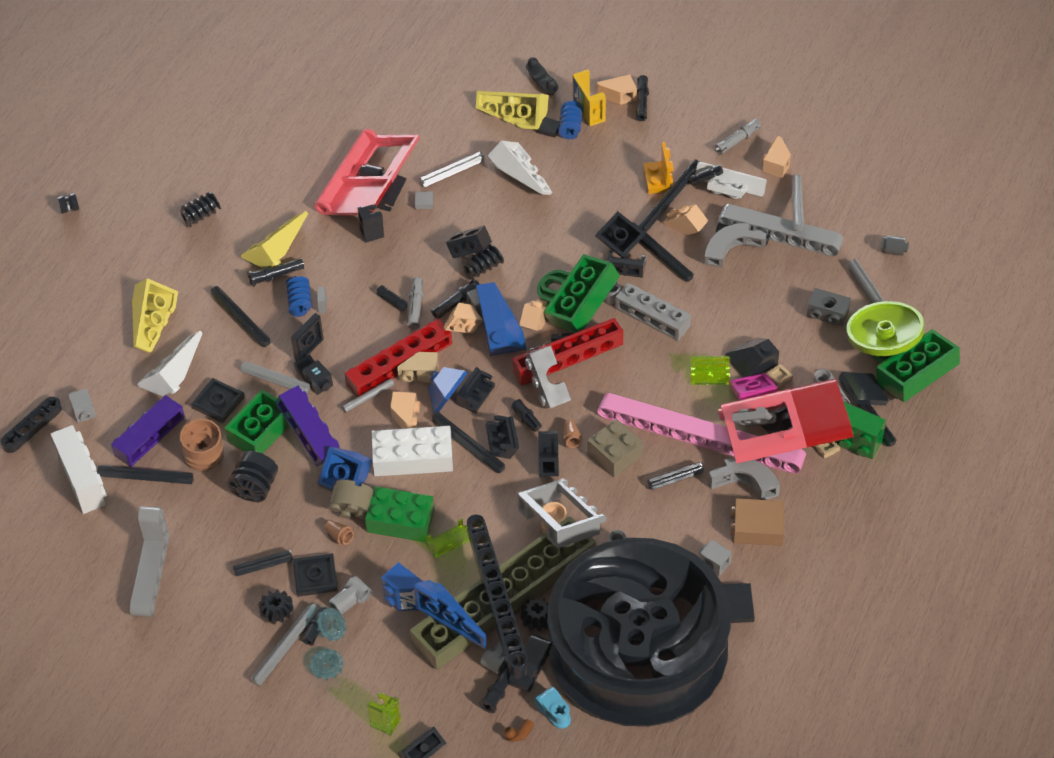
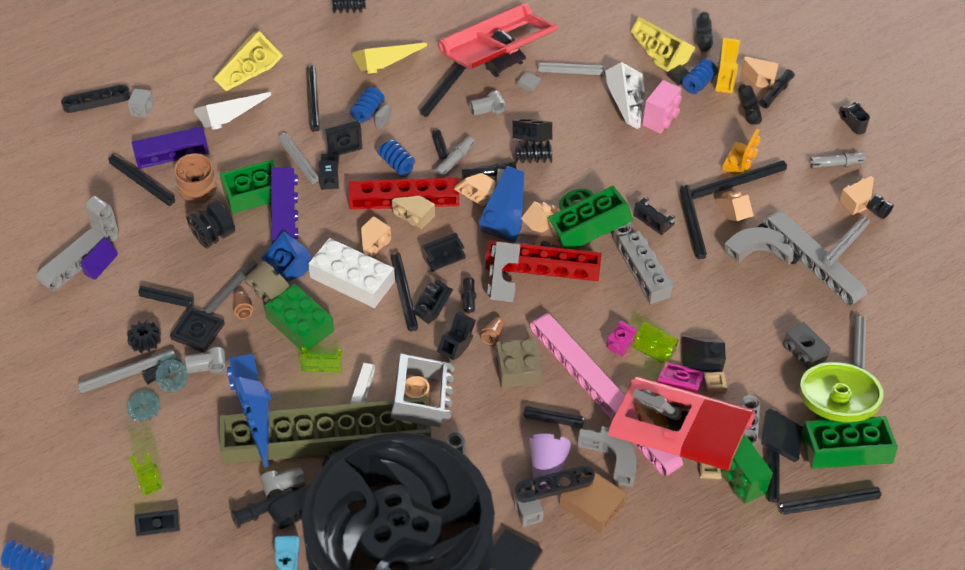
camera: 30 degrees right, 0 degrees up
(79, 469) = (92, 147): white brick -> none
(172, 565) = (98, 259): none -> dark purple slope
(217, 400) = (242, 152): black tile -> none
(267, 273) = (359, 76): black pin -> none
(313, 522) = (230, 287): none -> dark grey bar
(353, 270) = (442, 89): none -> black axle
(366, 330) = (396, 157): none -> blue piece
(368, 395) = (357, 210): light grey bar -> none
(370, 223) = (466, 76): black hinge -> none
(408, 236) = (493, 102): none -> light grey piece
(444, 385) = (418, 234): slope -> none
(497, 603) = (307, 437): black beam -> none
(501, 538) = (363, 384): none -> white beam
(518, 734) = (240, 559): dark orange arm -> none
(563, 163) = (662, 107): none -> bright pink brick
(620, 234) = (664, 188): black slope -> none
(631, 123) = (750, 103): none -> black piece
(680, 381) = (621, 338): none -> dark pink brick
(702, 512) = (547, 455): none -> lavender cone
(706, 175) = (782, 177): black axle -> none
(726, 91) = (855, 117): none -> black piece
(726, 526) = (555, 487): none -> black beam
(733, 182) = (799, 193): white bracket -> none
(753, 430) = (650, 416): none -> clear orange piece
(797, 159) = (880, 206): none -> black wheel
(894, 245) = (911, 324): dark grey brick -> none
(935, 418) = (829, 500): none -> black axle

